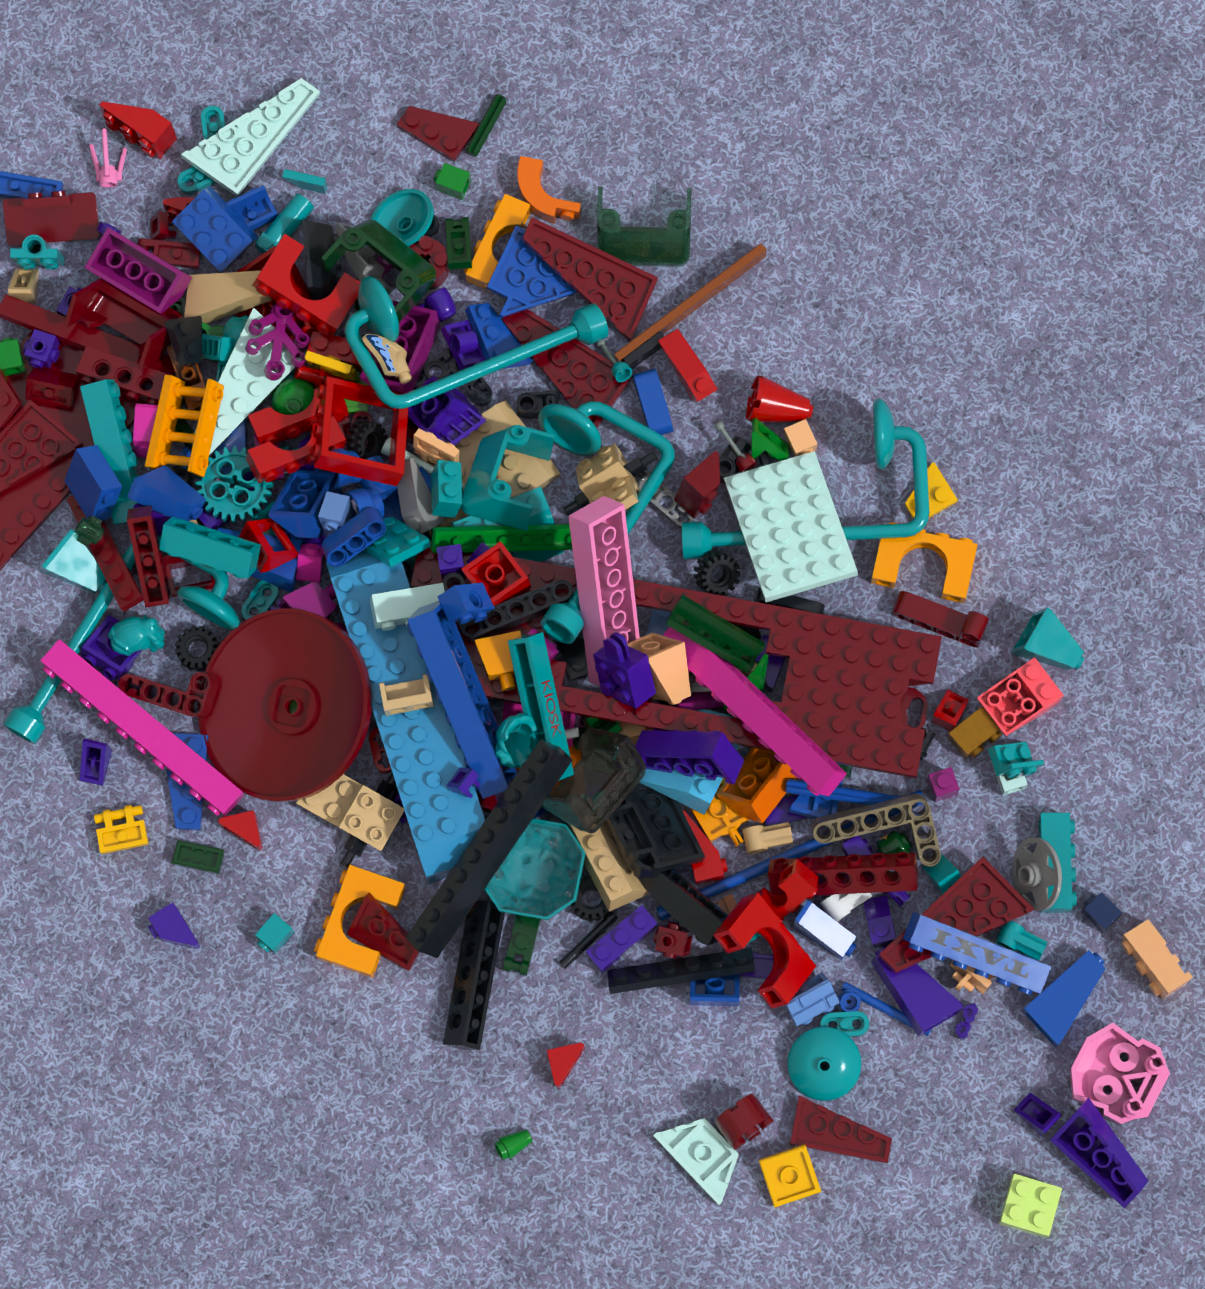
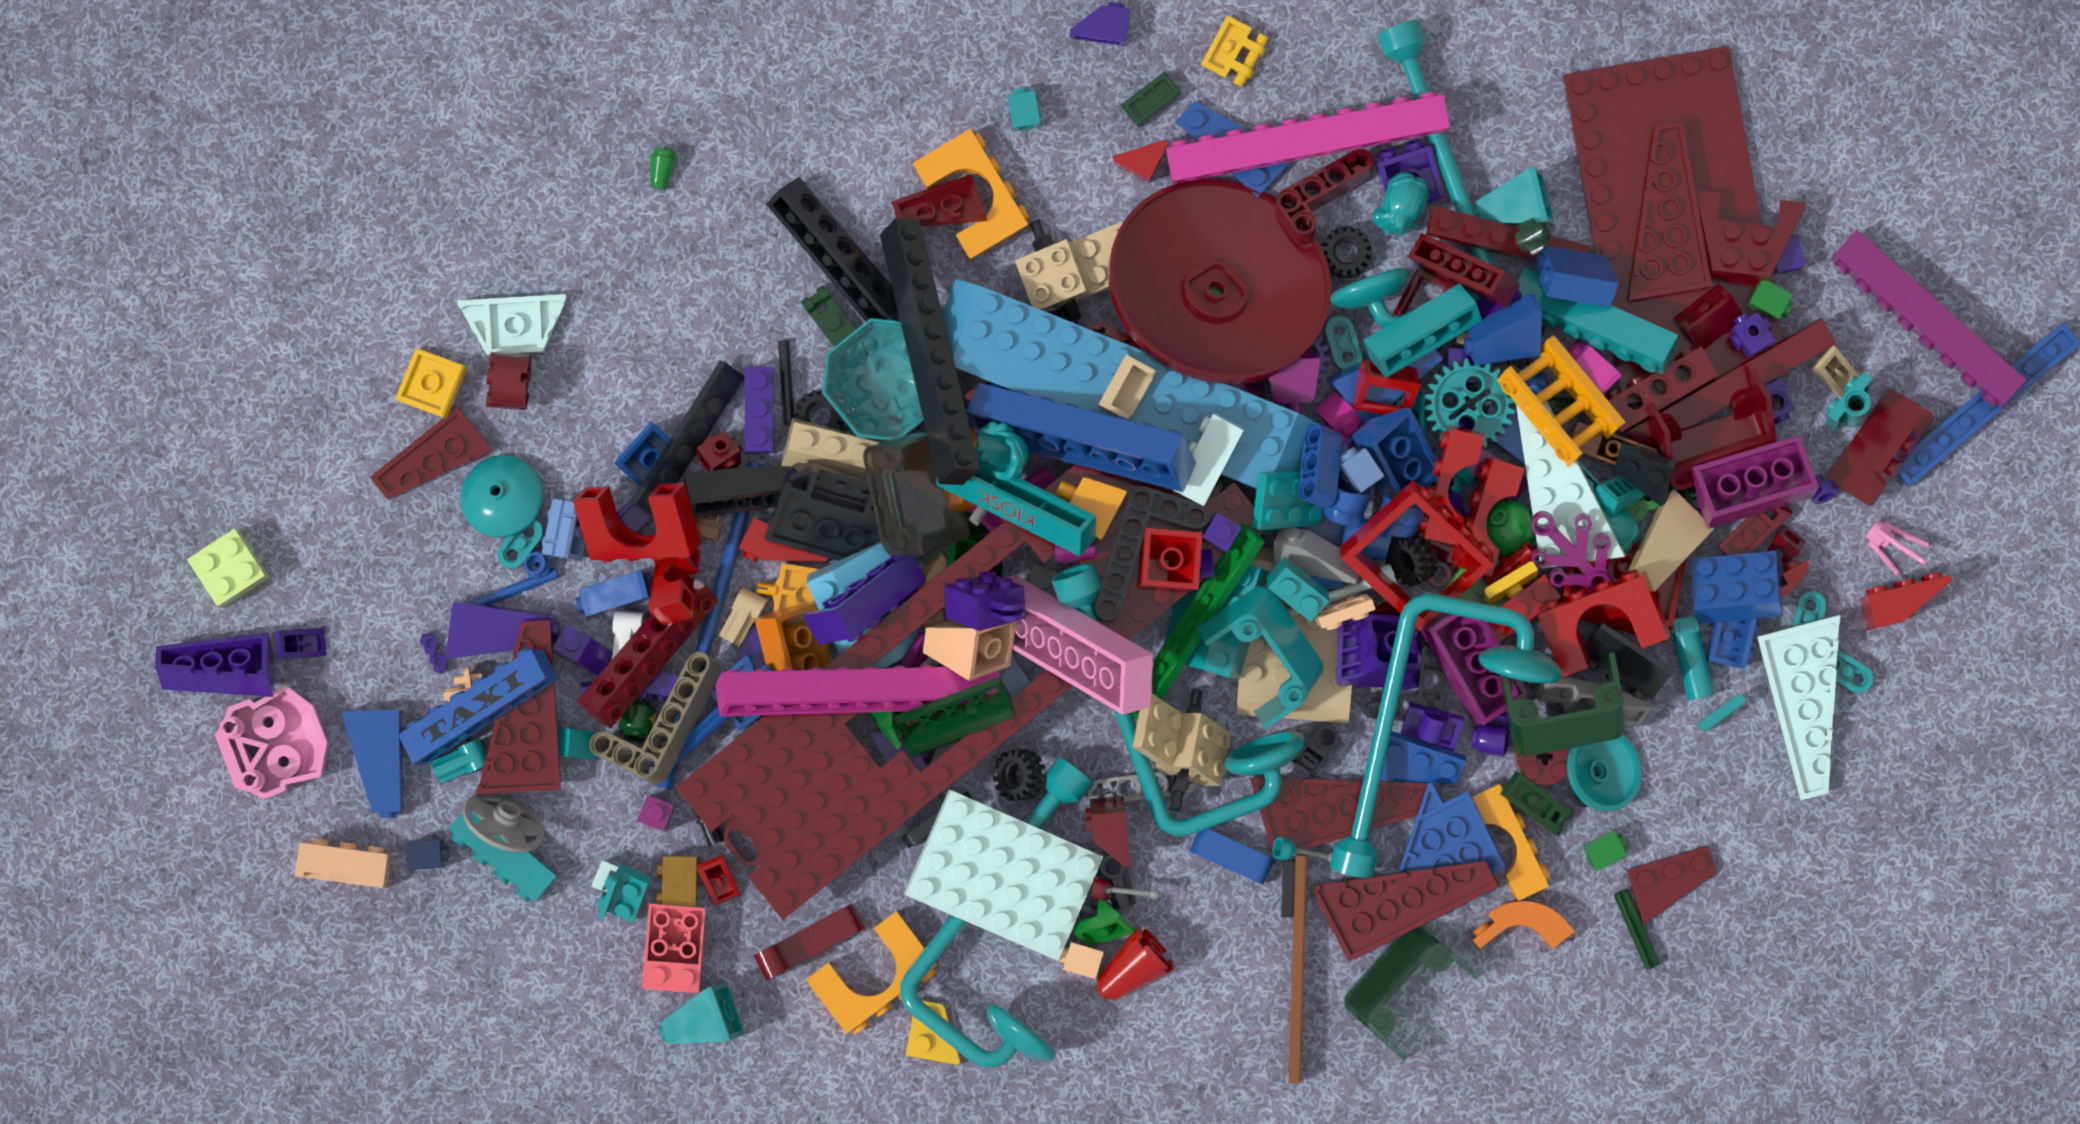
camera: 130 degrees right, 10 degrees up
(94, 761) = (1316, 76): dark purple slope -> none
(390, 356) = (1466, 638): tan arm -> none
(463, 780) = (1005, 374): dark purple tile -> none
(466, 603) = (1161, 506): blue brick -> none
(563, 1060) = (697, 270): red slope -> none
(687, 366) = (1238, 914): red slope -> none

